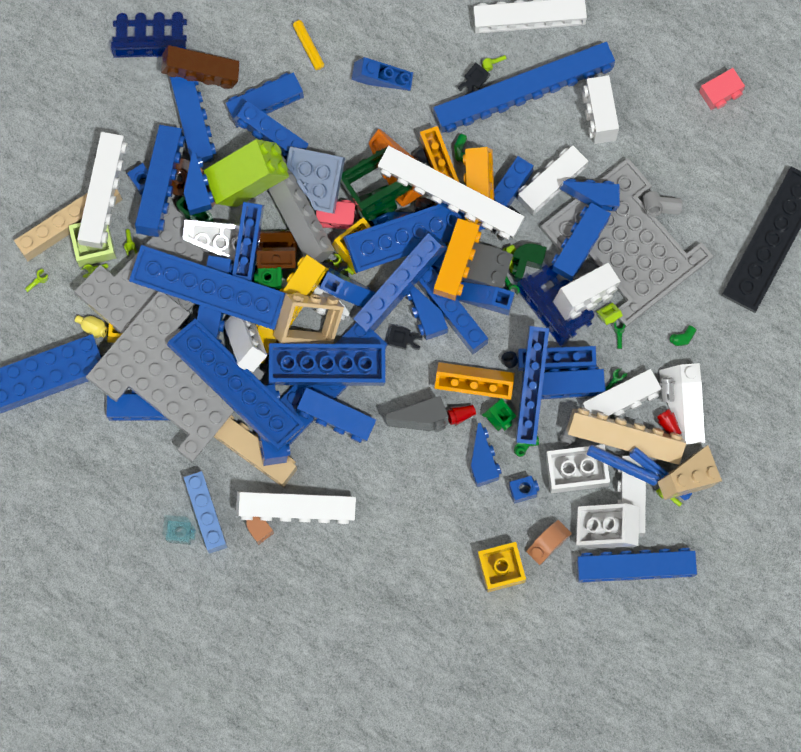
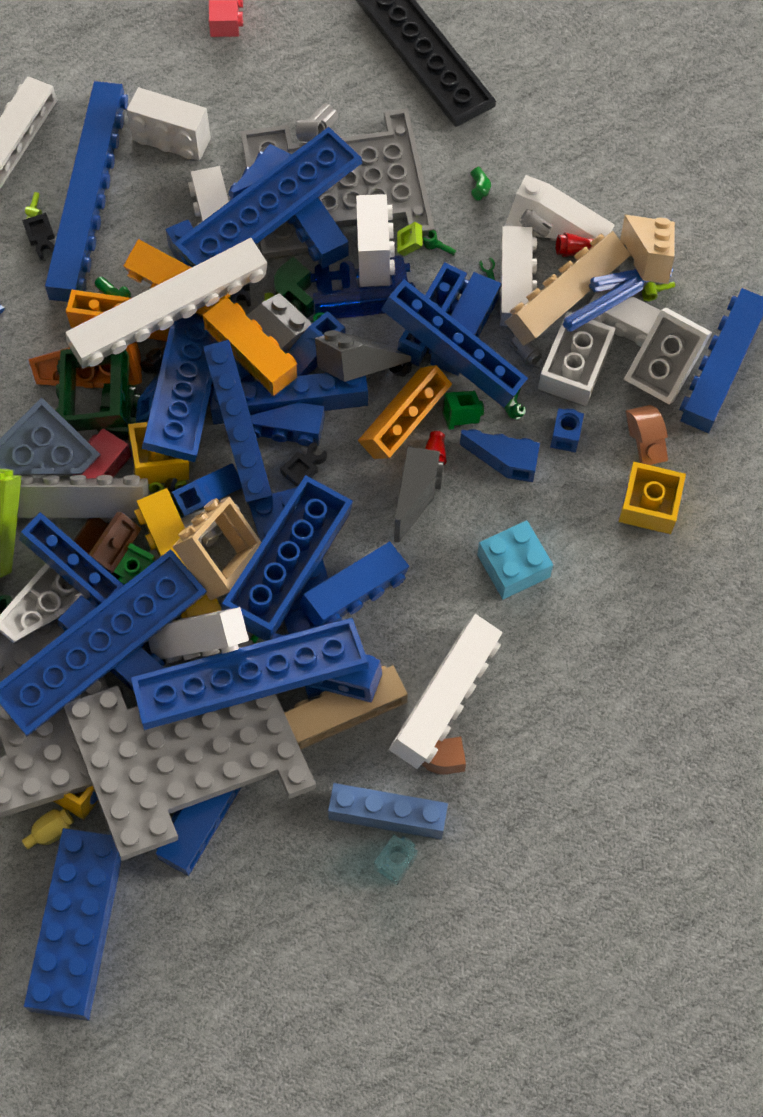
camera: 65 degrees left, 10 degrees down
(410, 503) = (515, 559): none -> medium azure brick
(494, 330) = (354, 356): none -> dark grey slope
(570, 210) = (272, 198): none -> blue plate

